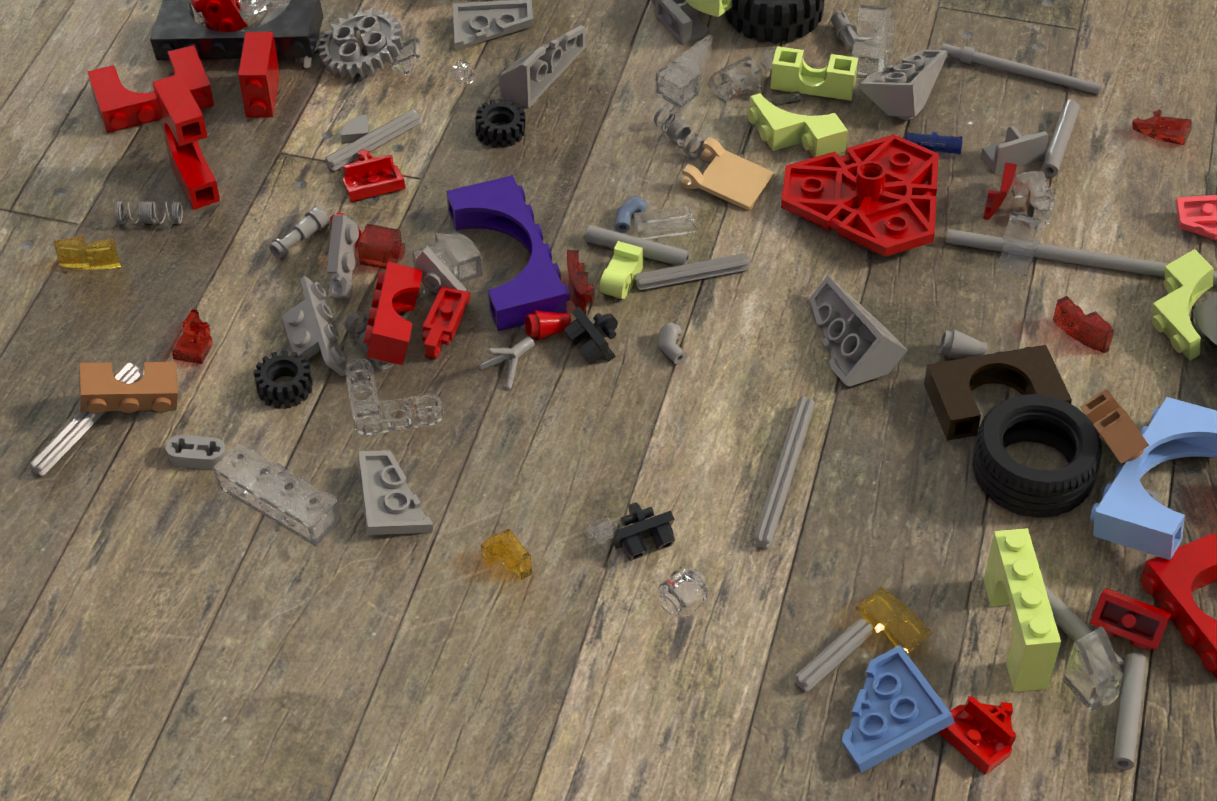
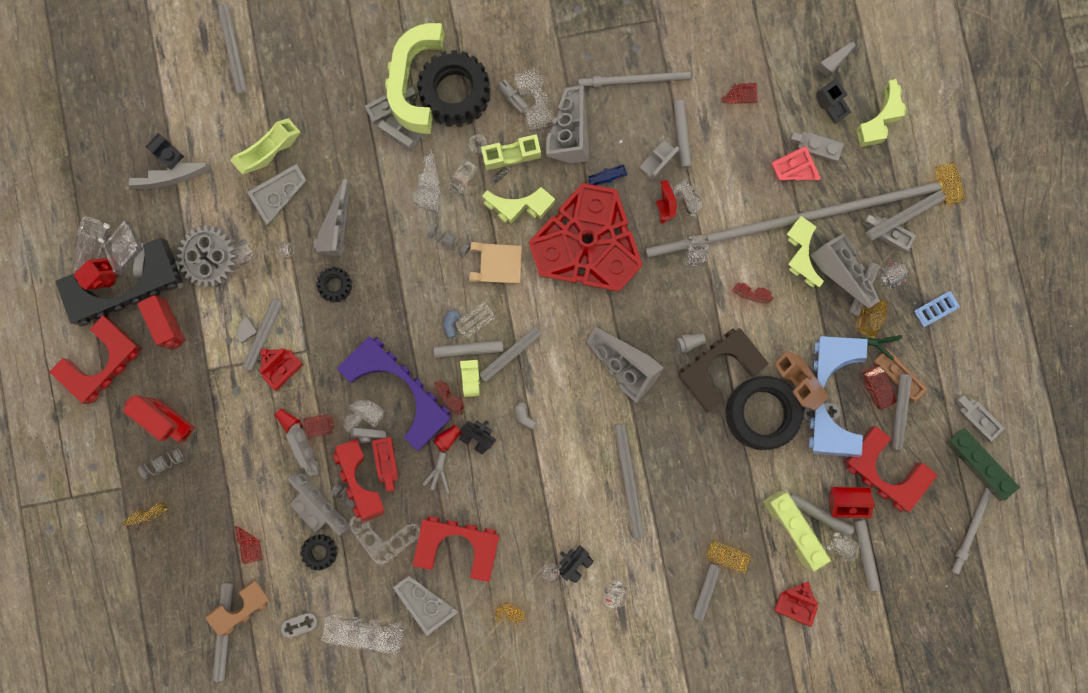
camera: 25 degrees left, 35 degrees up
(314, 220) = (262, 433): light grey piece -> none
(462, 417) = (483, 542): none -> red arch
(892, 711) = (751, 616): medium blue plate -> none

